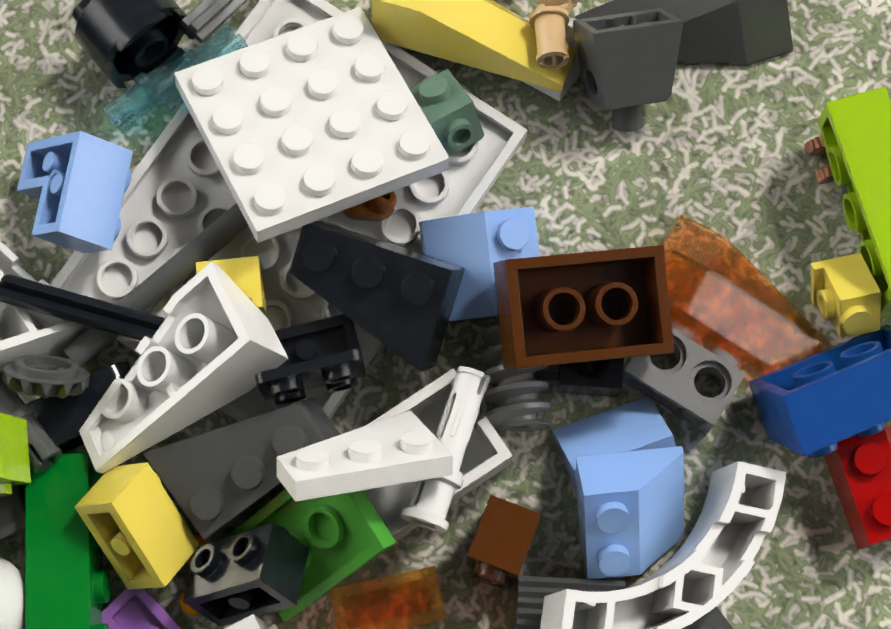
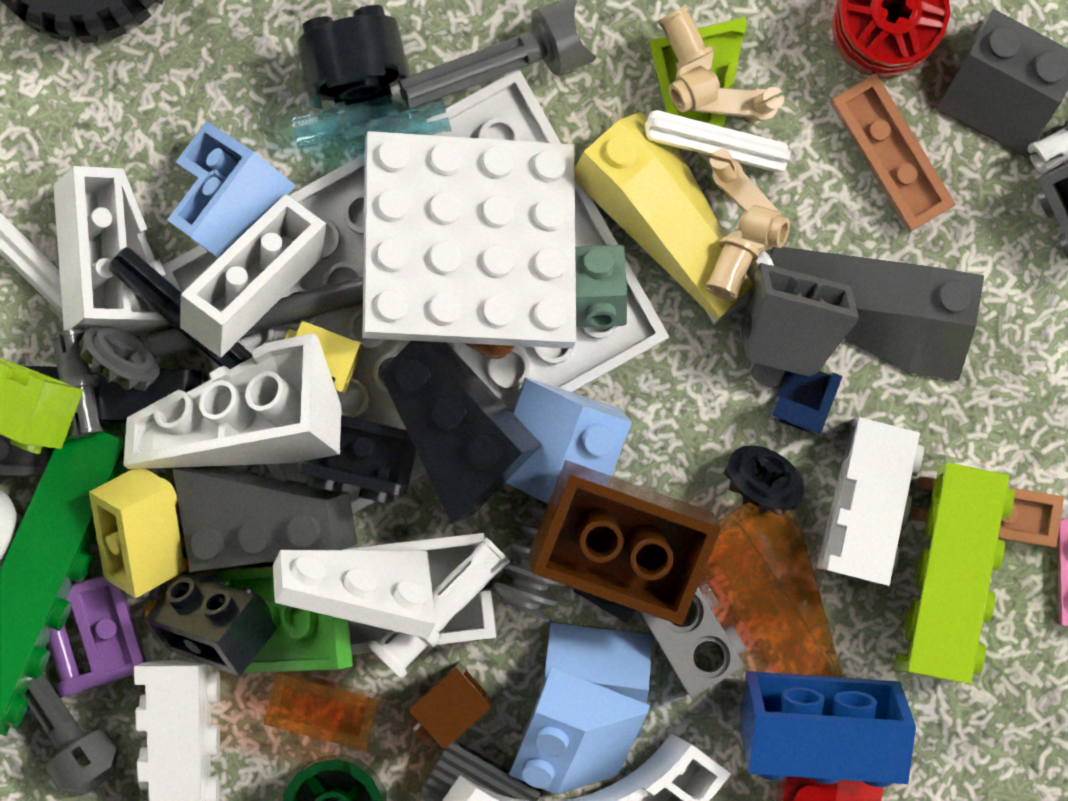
camera: 25 degrees right, 10 degrees up
(131, 243) = (252, 275): none -> white brick
(672, 127) = (805, 400): none -> dark blue panel
(674, 208) = (769, 468): none -> black gear
(776, 183) = (871, 501): none -> white wedge
(846, 294) = (876, 639): light yellow brick -> none

